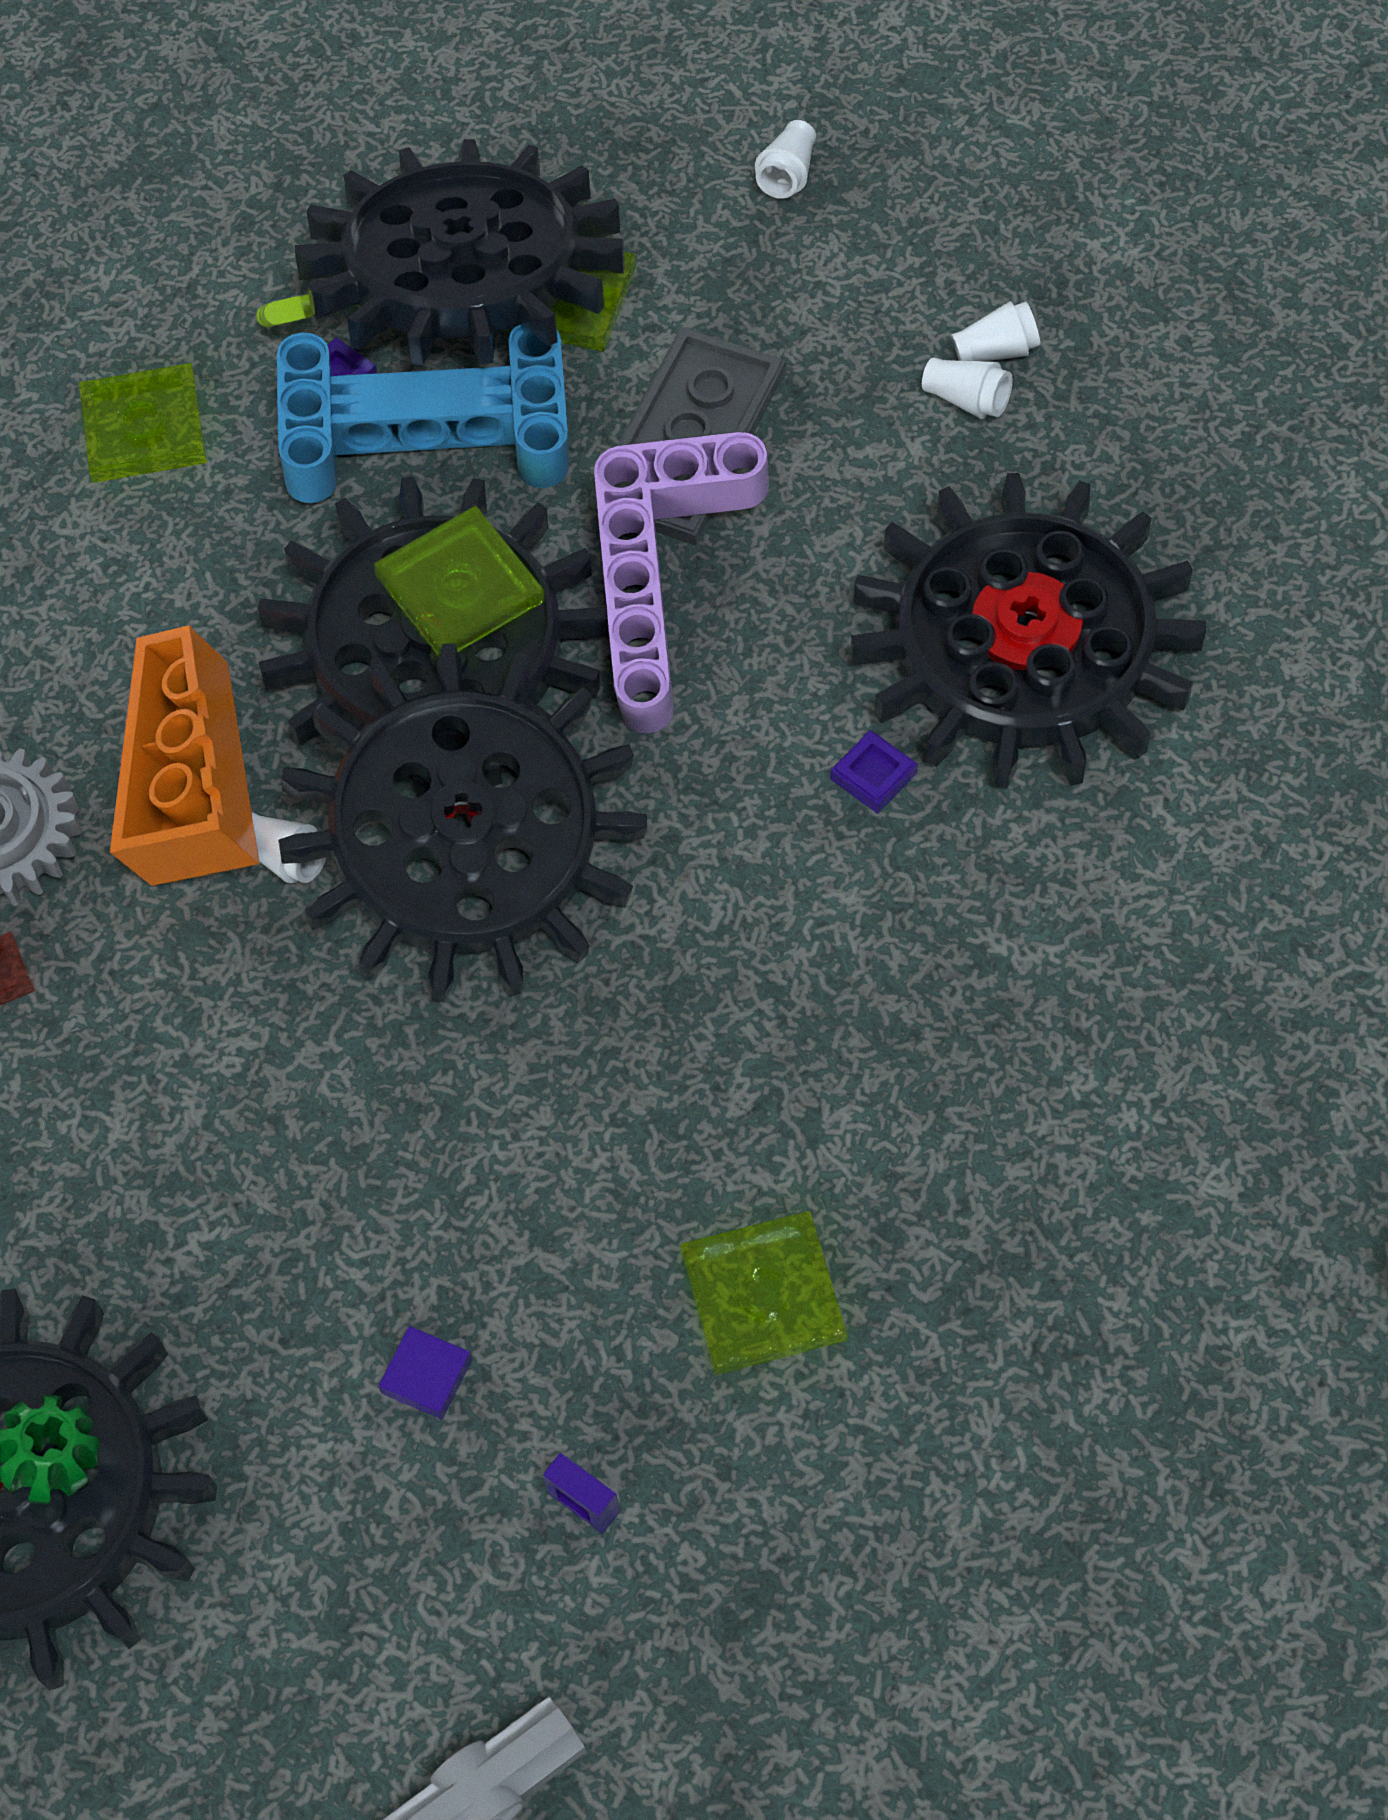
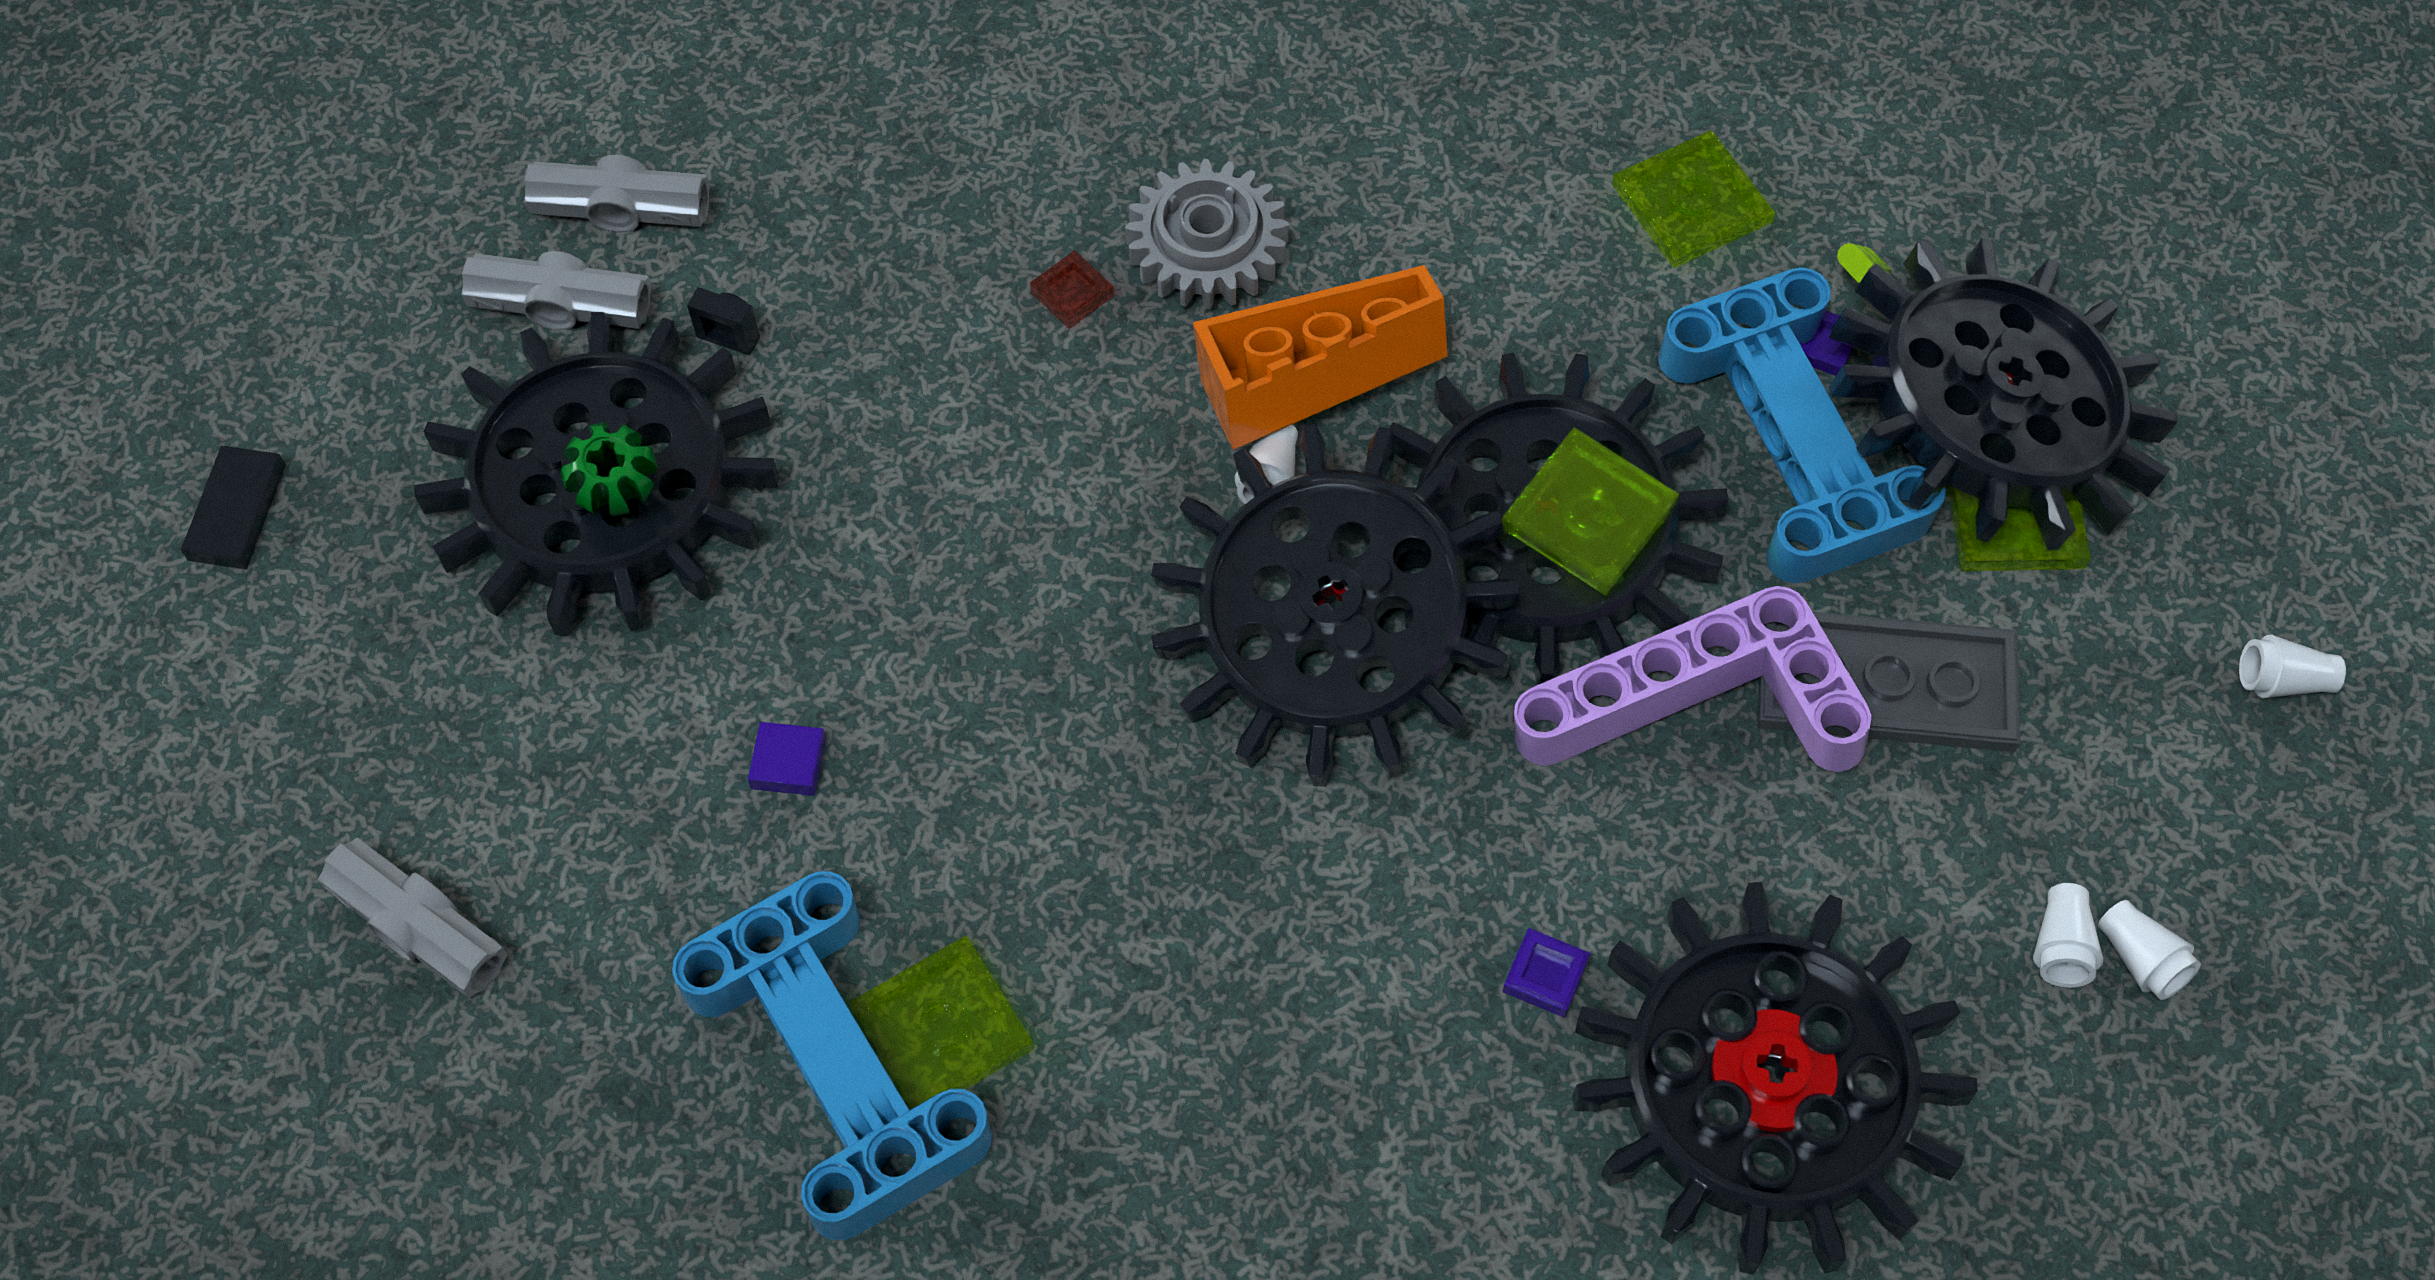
camera: 70 degrees right, 0 degrees up
(581, 1493) = (696, 913): dark purple tile -> none
(768, 1392) = (832, 1053): none -> dark azure beam

